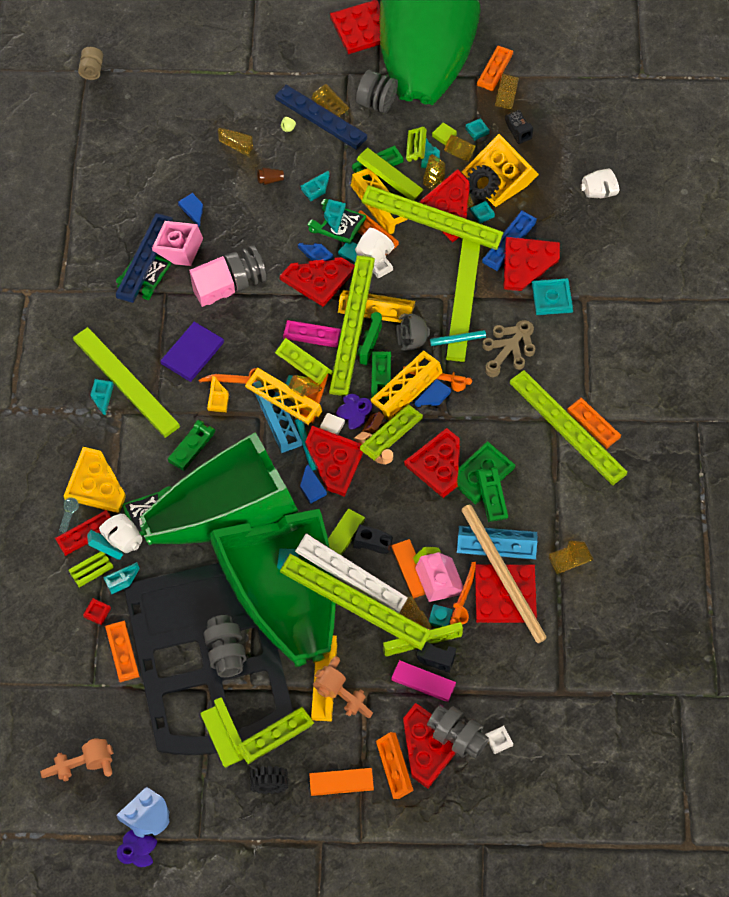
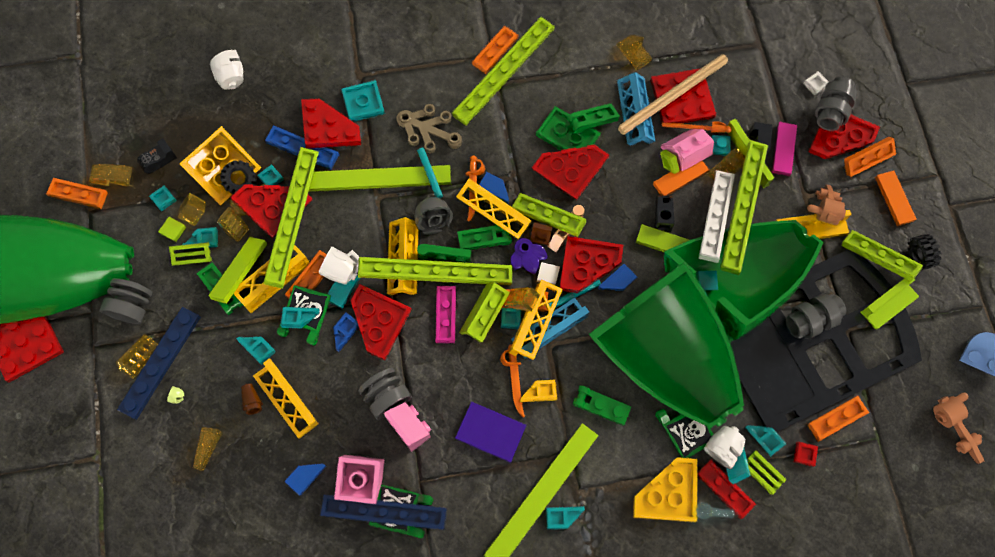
camera: 105 degrees left, 10 degrees up
(264, 202) = (288, 392): none -> yellow fence

